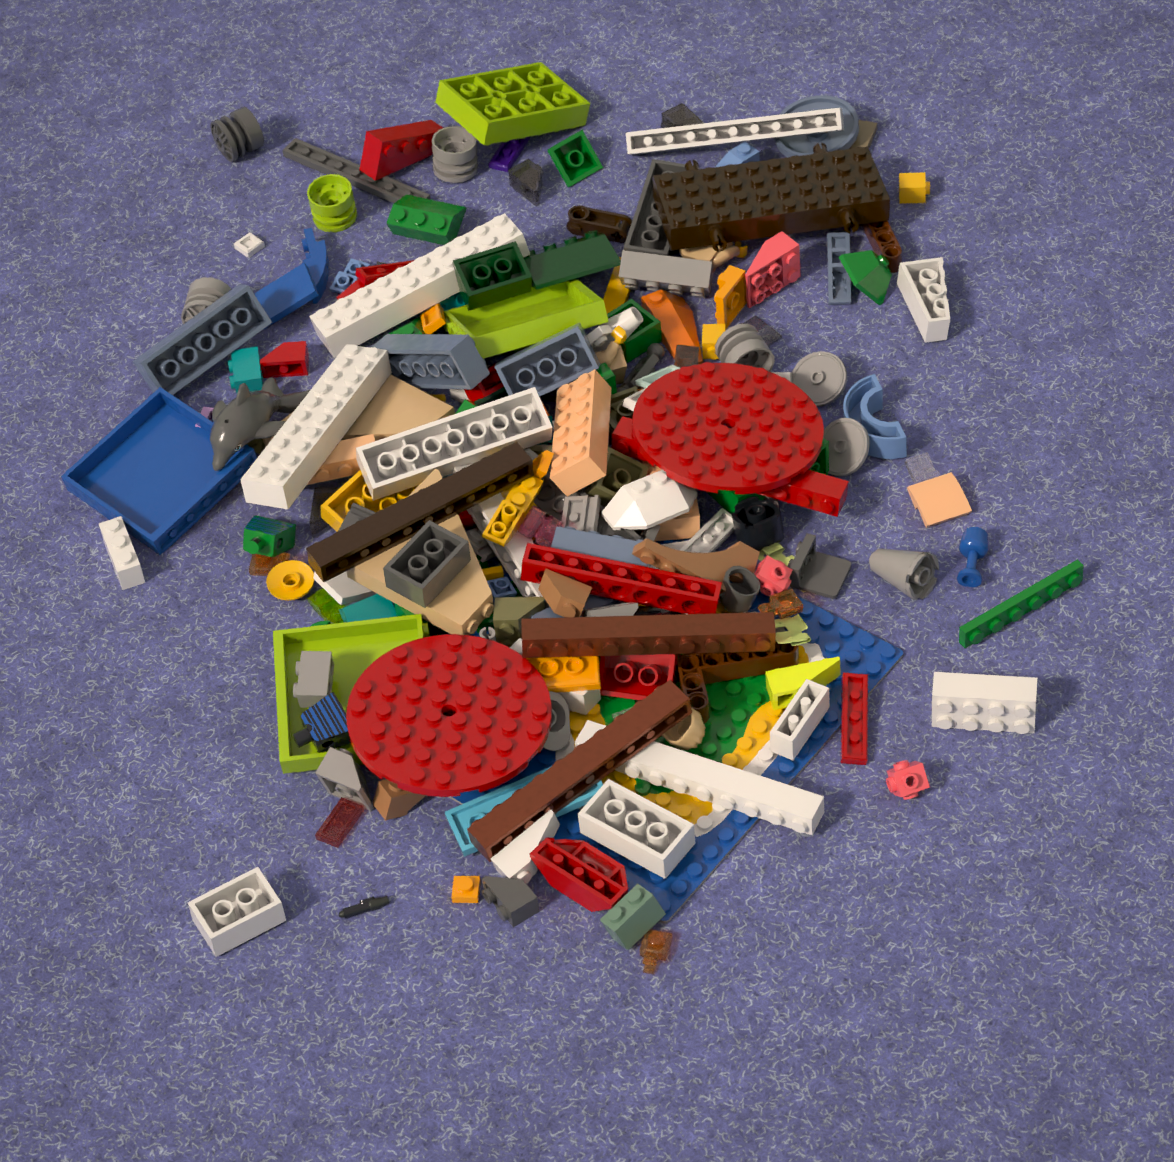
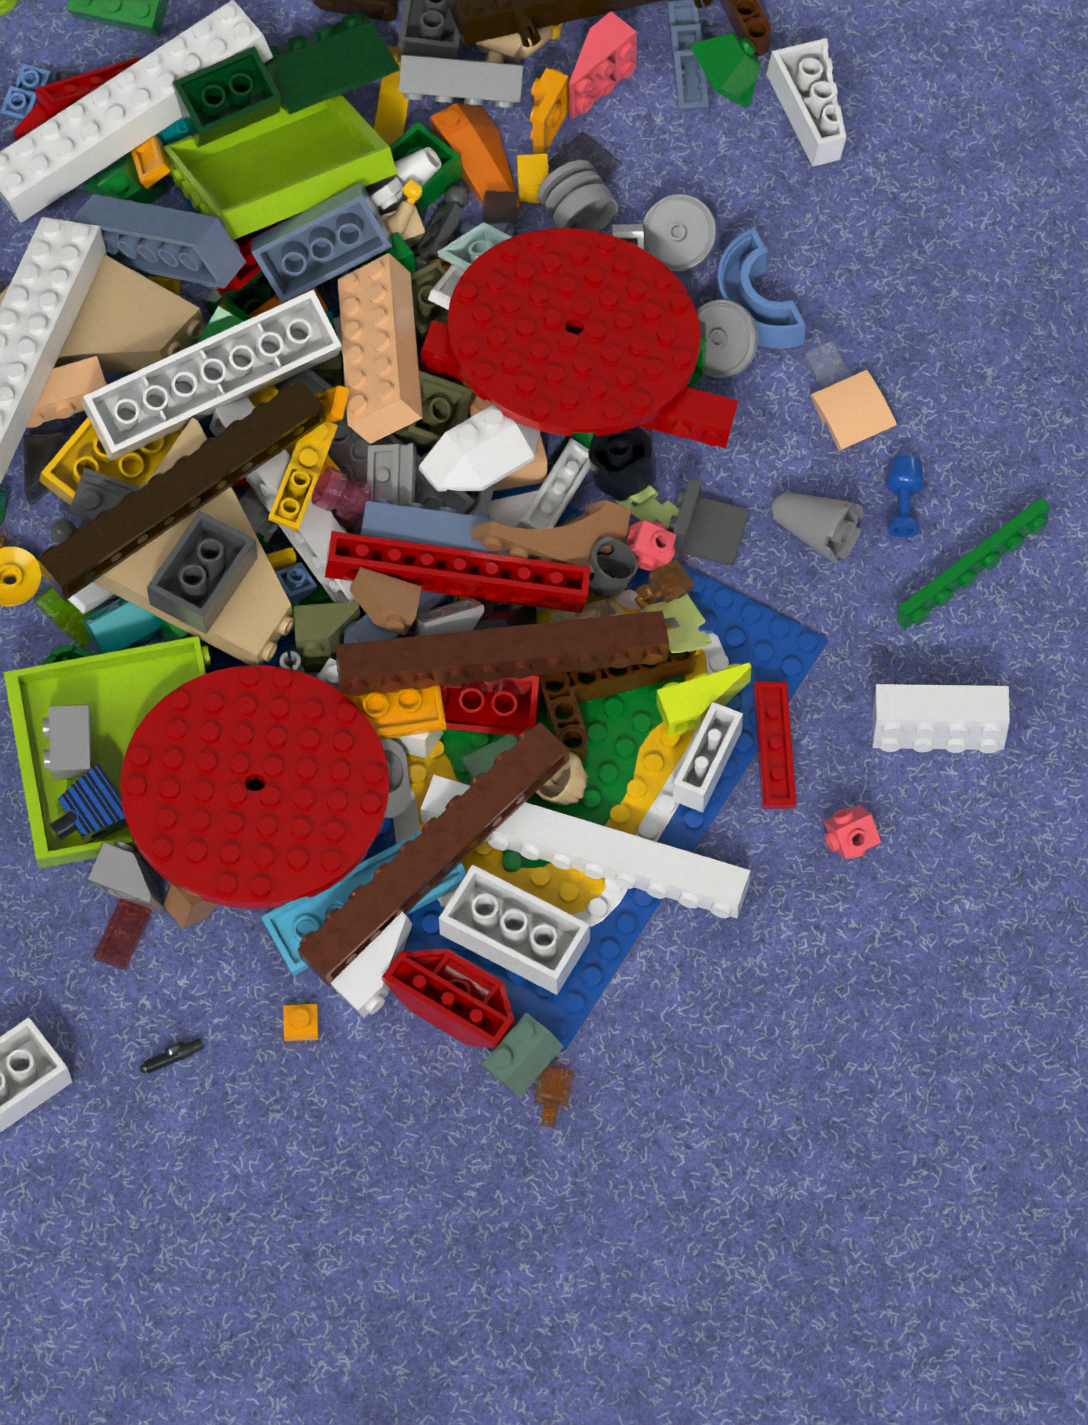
camera: 10 degrees left, 15 degrees up
(511, 897) = (363, 1035): dark grey slope -> none

